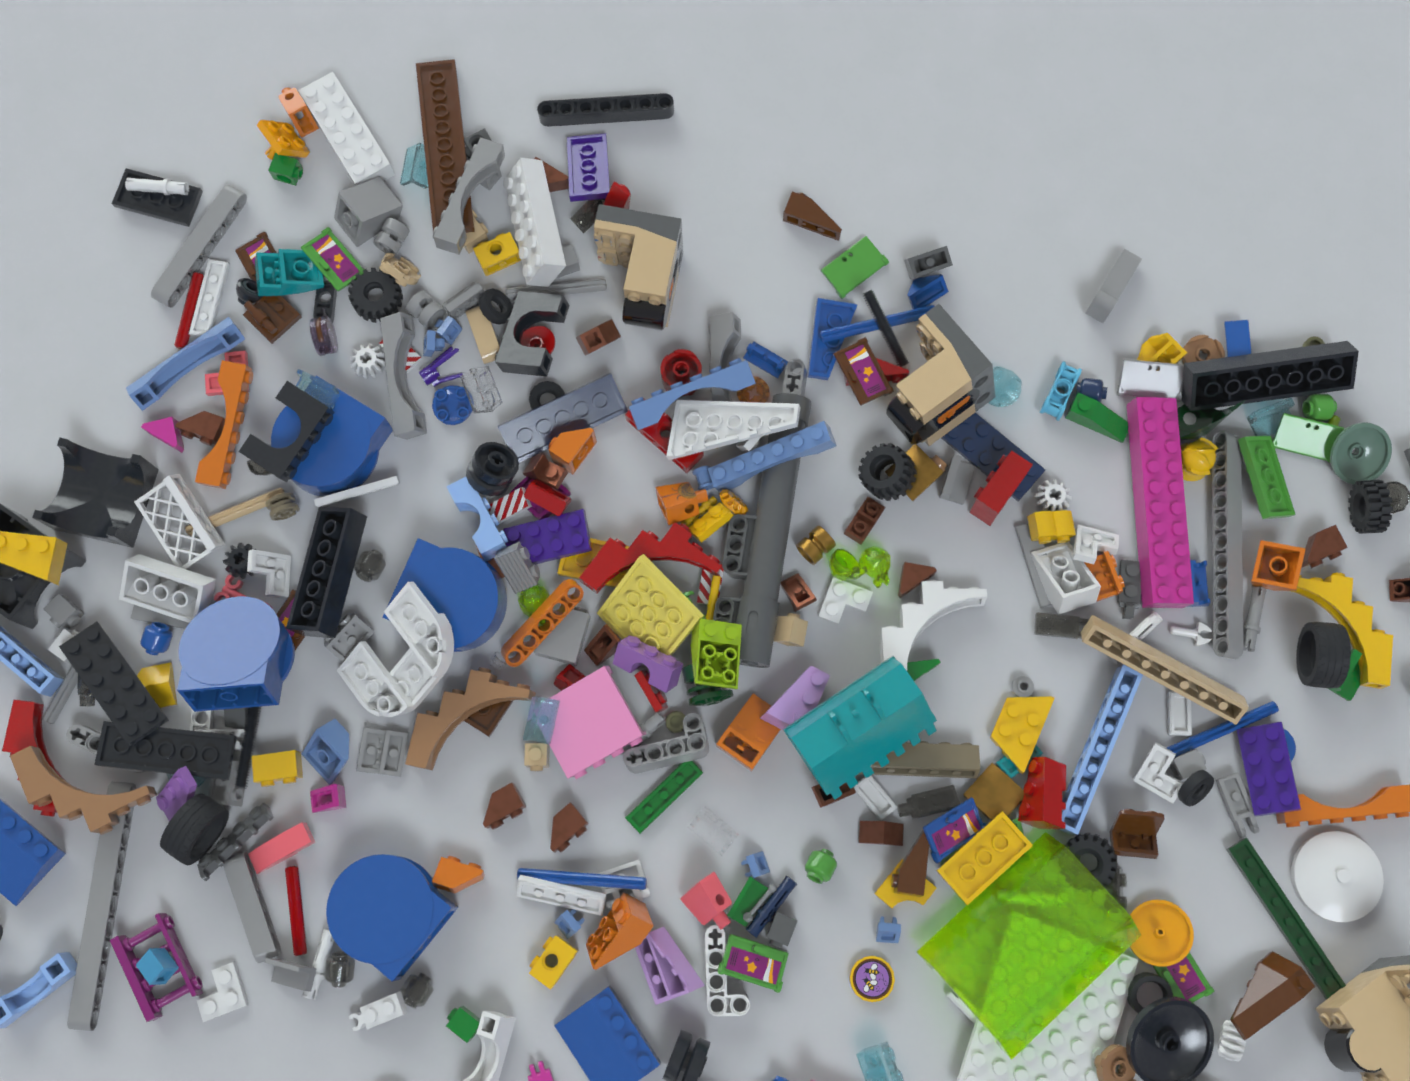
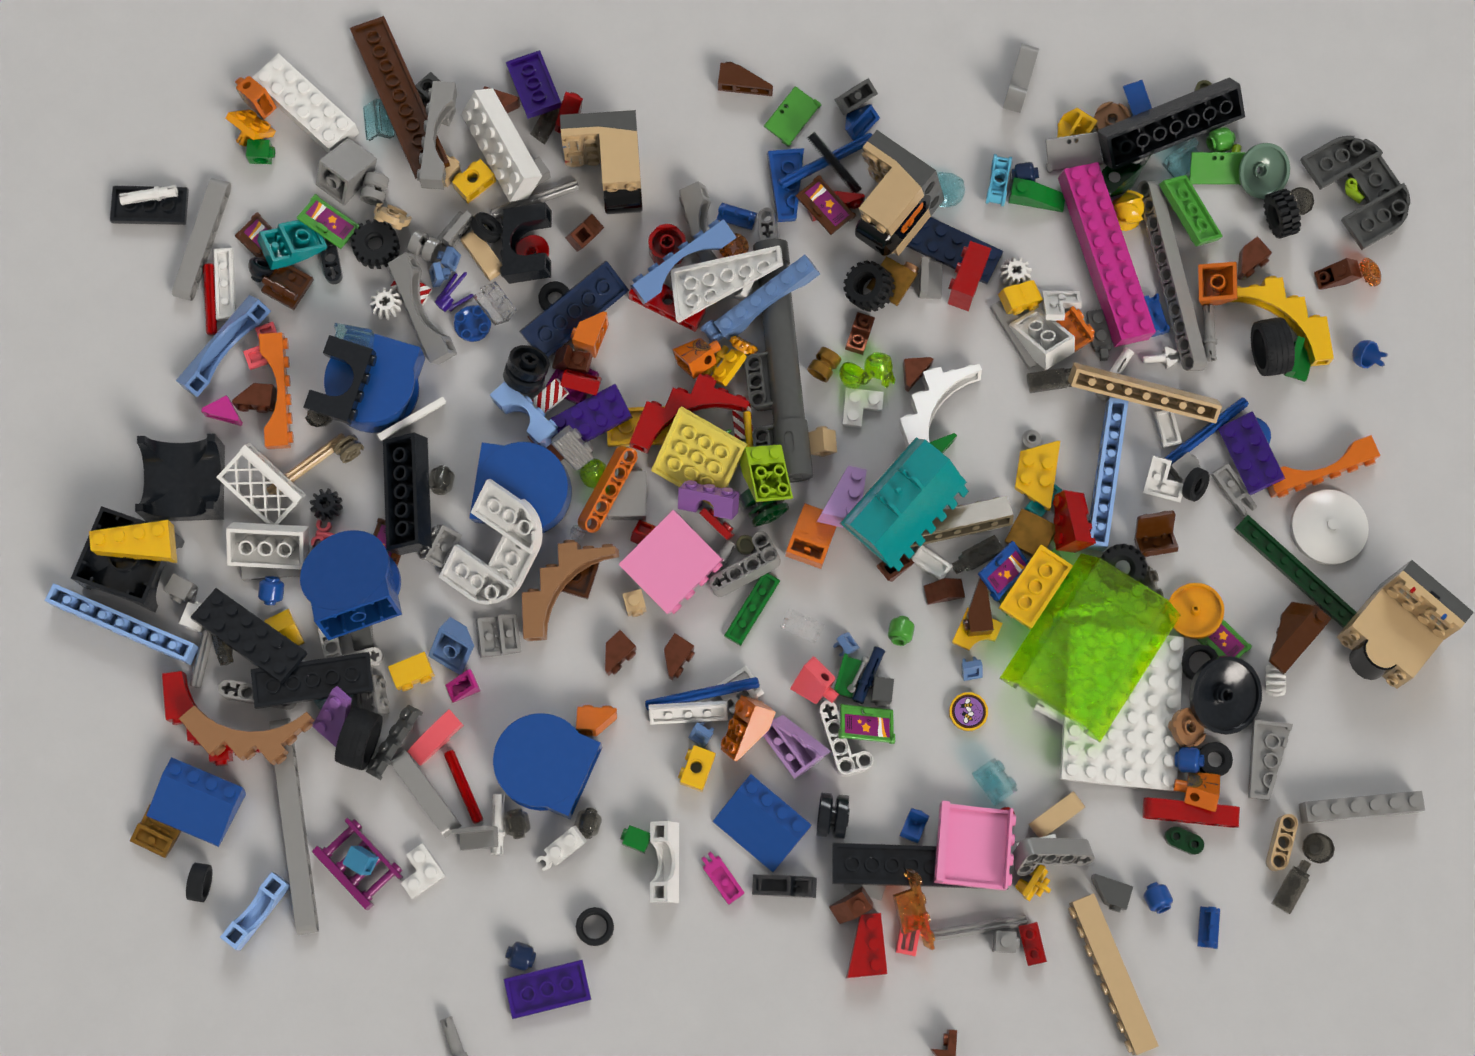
camera: 20 degrees left, 0 degrees up
(247, 747) = (381, 659): black axle -> none
(276, 568) = (359, 503): white plate -> none
(323, 335) = (340, 291): clear purple head -> none
(541, 719) = (632, 569): clear light blue panel -> none
(602, 645) = (665, 495): copper slope -> none
(615, 114) = (527, 36): black beam -> none
(797, 592) = (820, 408): copper slope -> none

